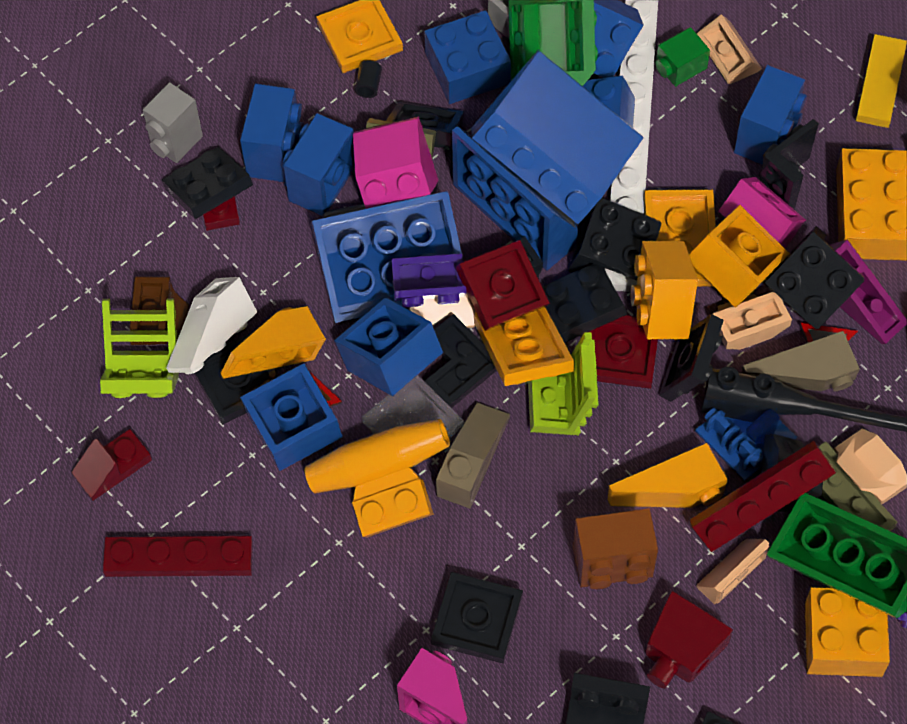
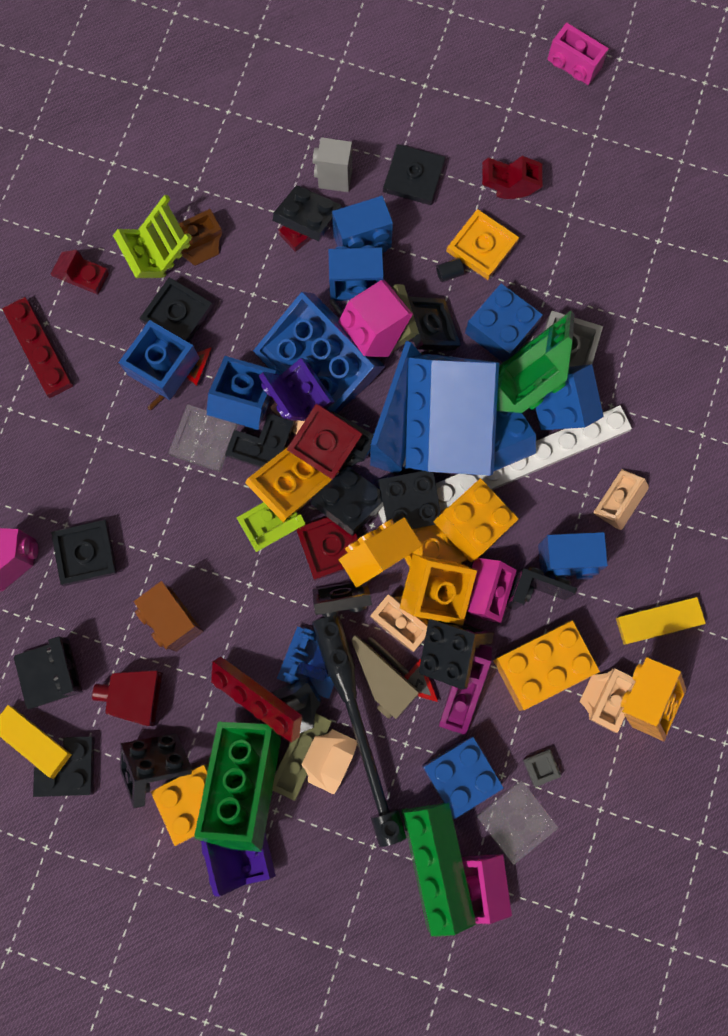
camera: 60 degrees right, 15 degrees up
(211, 320) = (199, 272): white slope -> none
(228, 60) = (413, 174): none -> black plate
(281, 341) = (210, 322): light orange slope -> none
(381, 471) = (151, 437): light orange plate -> none
(471, 455) = (199, 488): dark tan slope -> none
(677, 482) = (249, 636): light orange slope -> none
(681, 183) = (476, 520): none -> light orange brick
(682, 57) = (591, 469): green brick -> none
(733, 569) = (204, 702): light nougat slope -> none
(776, 652) = (149, 762): none -> black bracket

